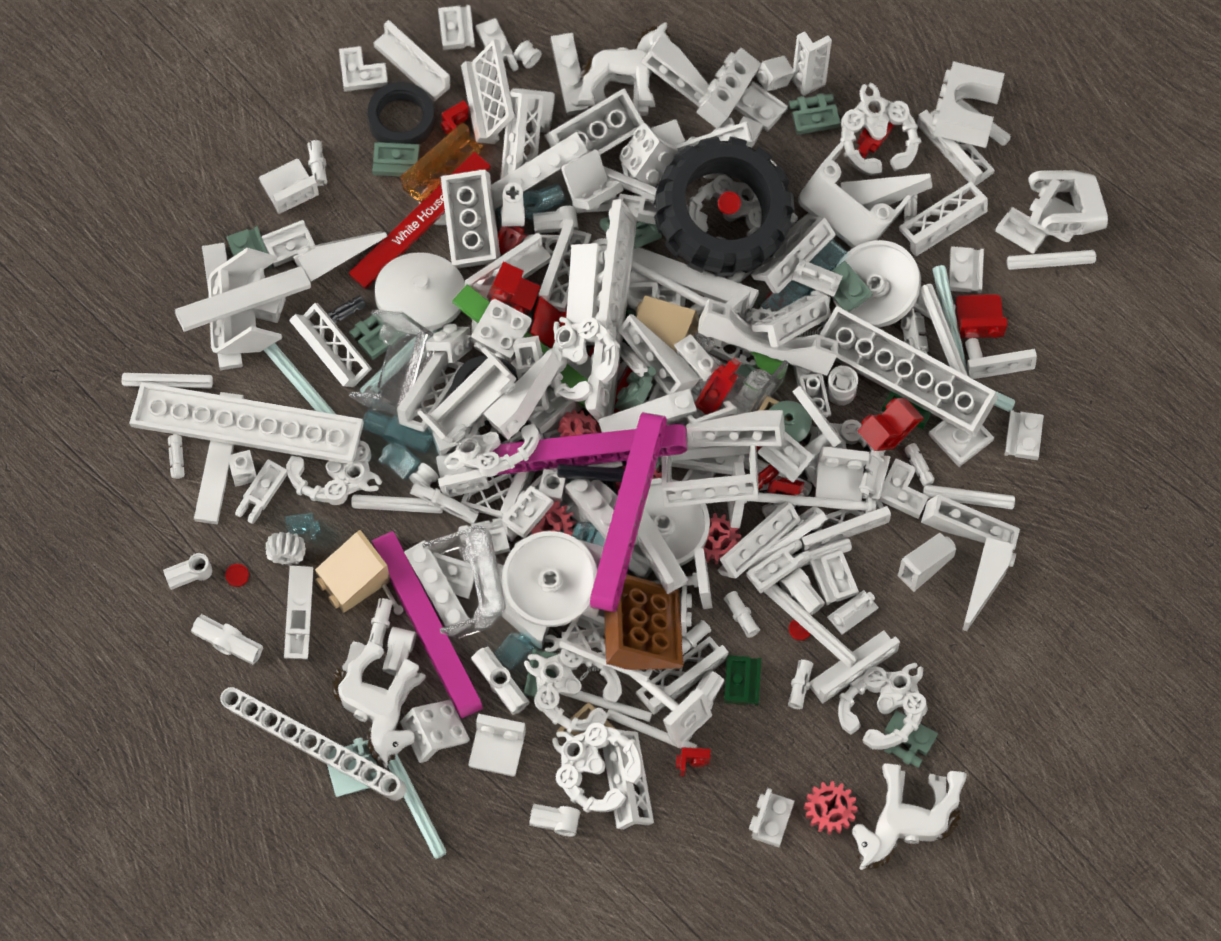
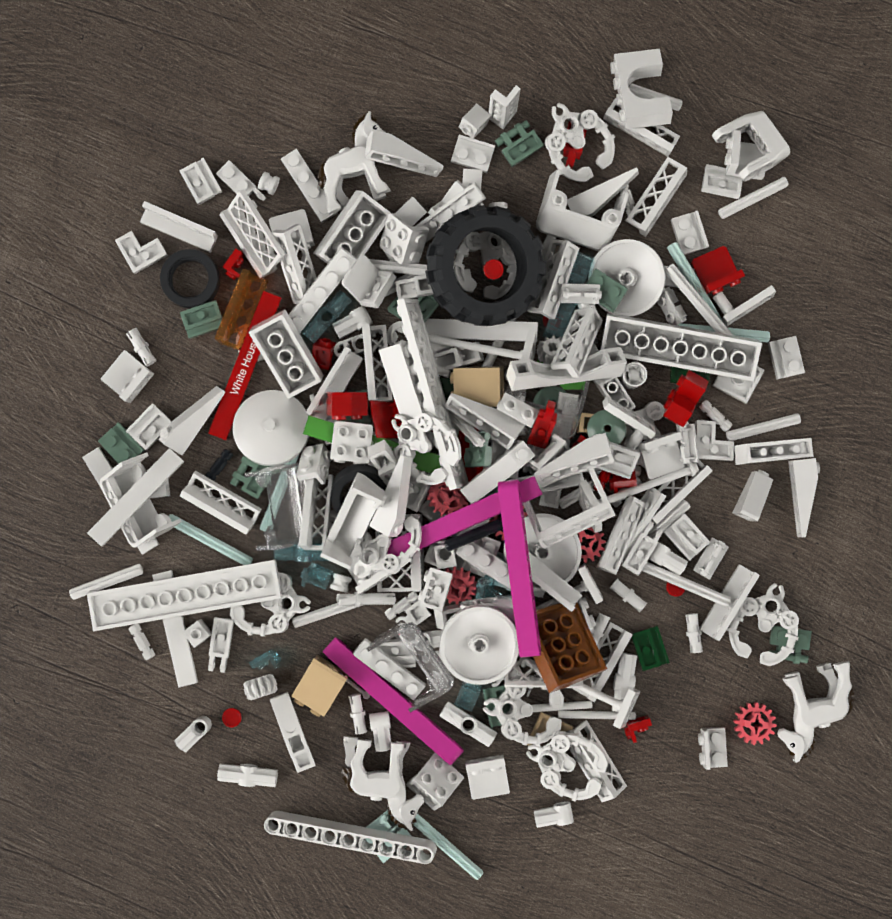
camera: 20 degrees left, 20 degrees up
(512, 209) = (315, 331): white piece -> none
(728, 88) = (444, 152): white brick -> none

